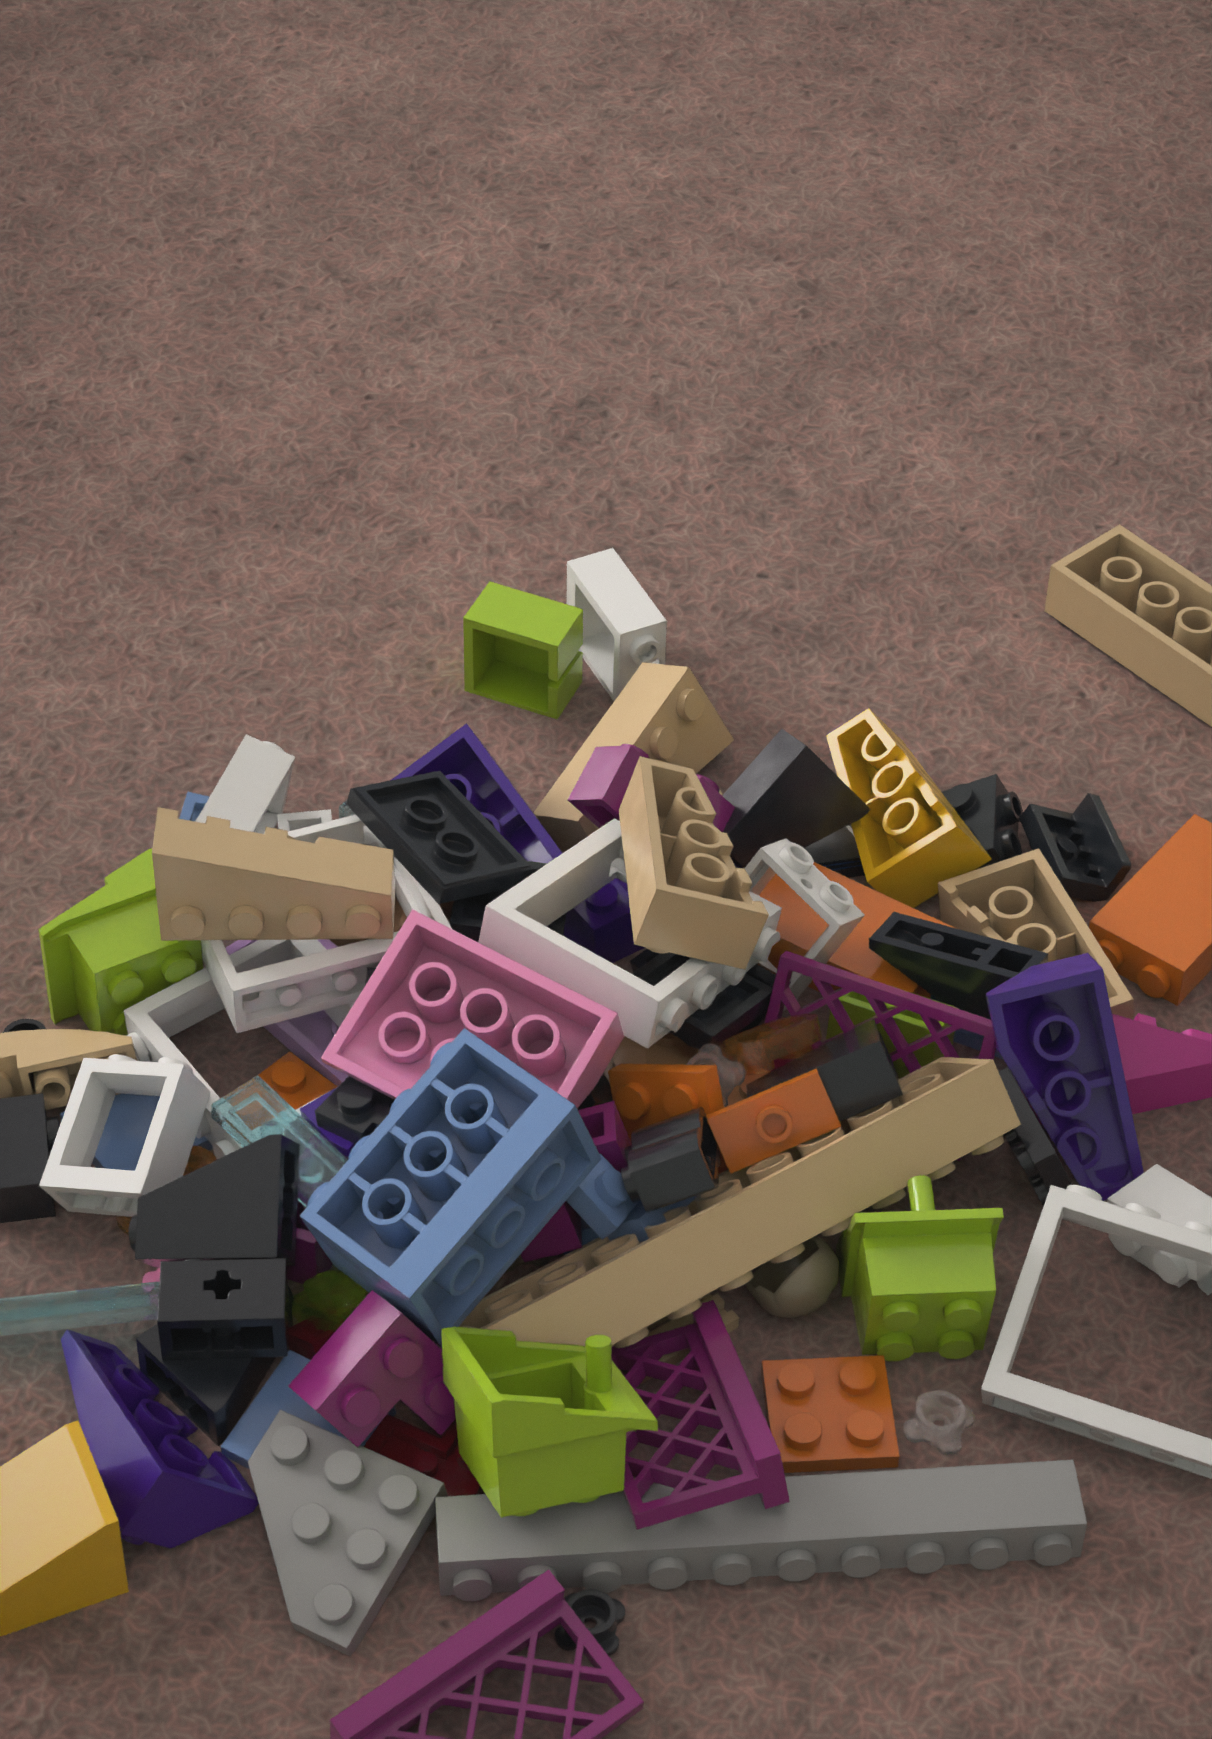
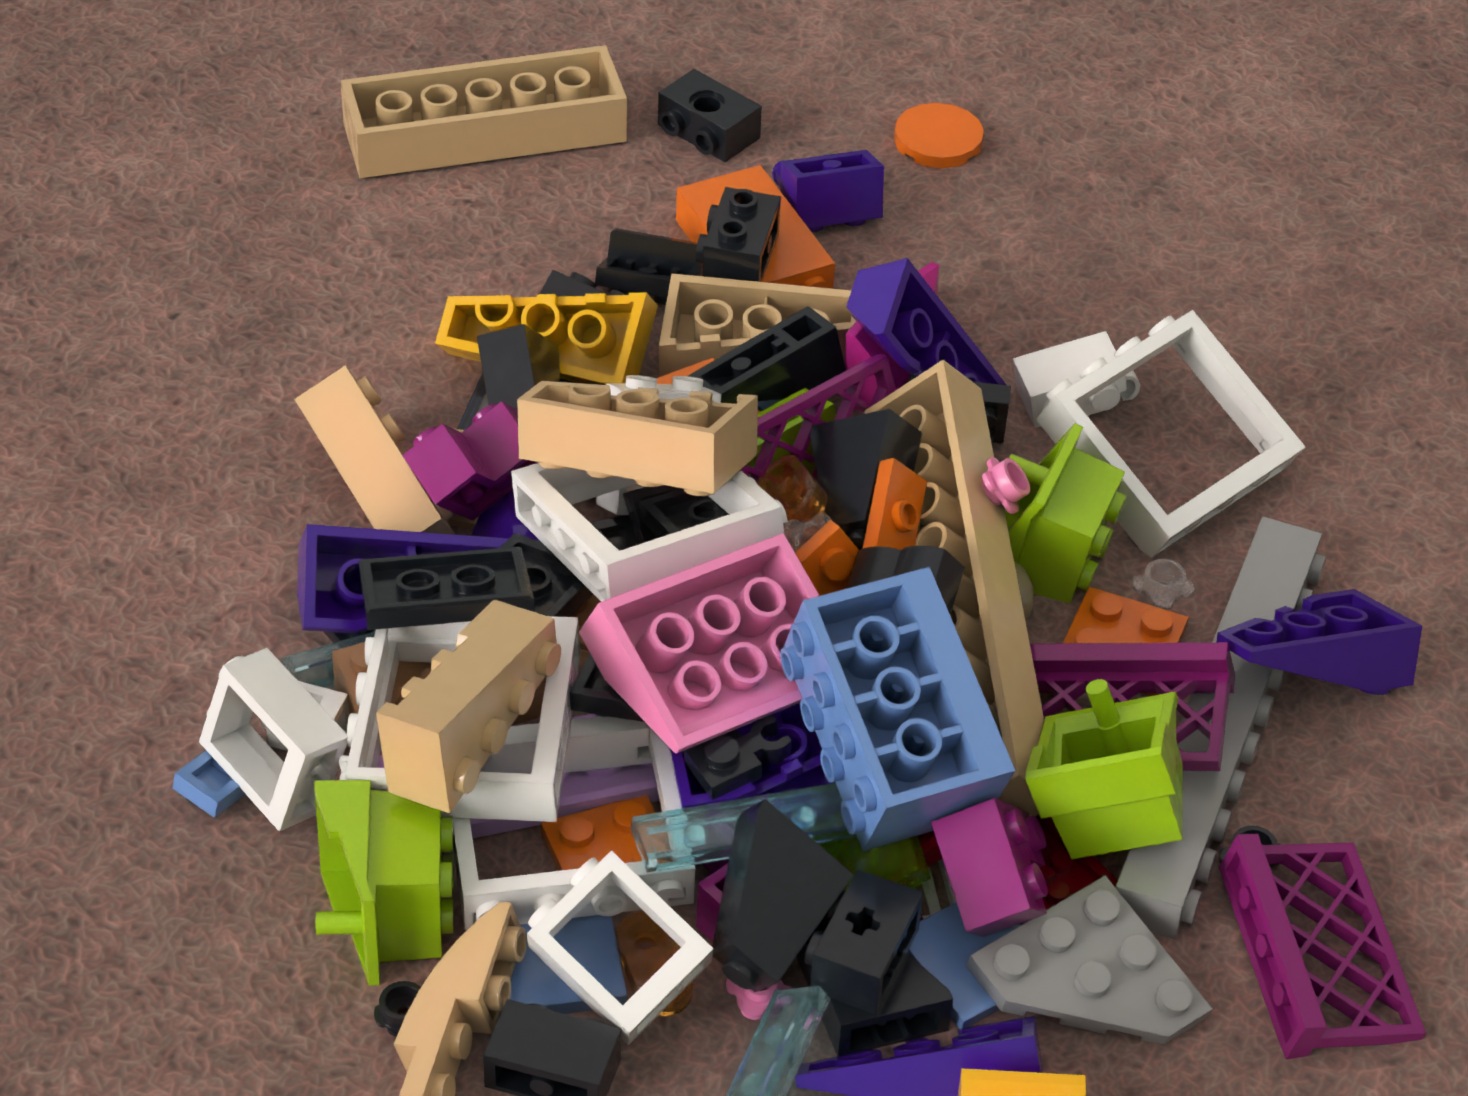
camera: 65 degrees left, 0 degrees up
(523, 650) = (183, 478): lime piece -> none
(618, 619) = (204, 382): white window -> none
(892, 1185) = (1005, 483): none -> bright pink plate
(914, 1588) = (1334, 639): none -> dark purple wedge
(1132, 878) = (740, 235): none -> black brick

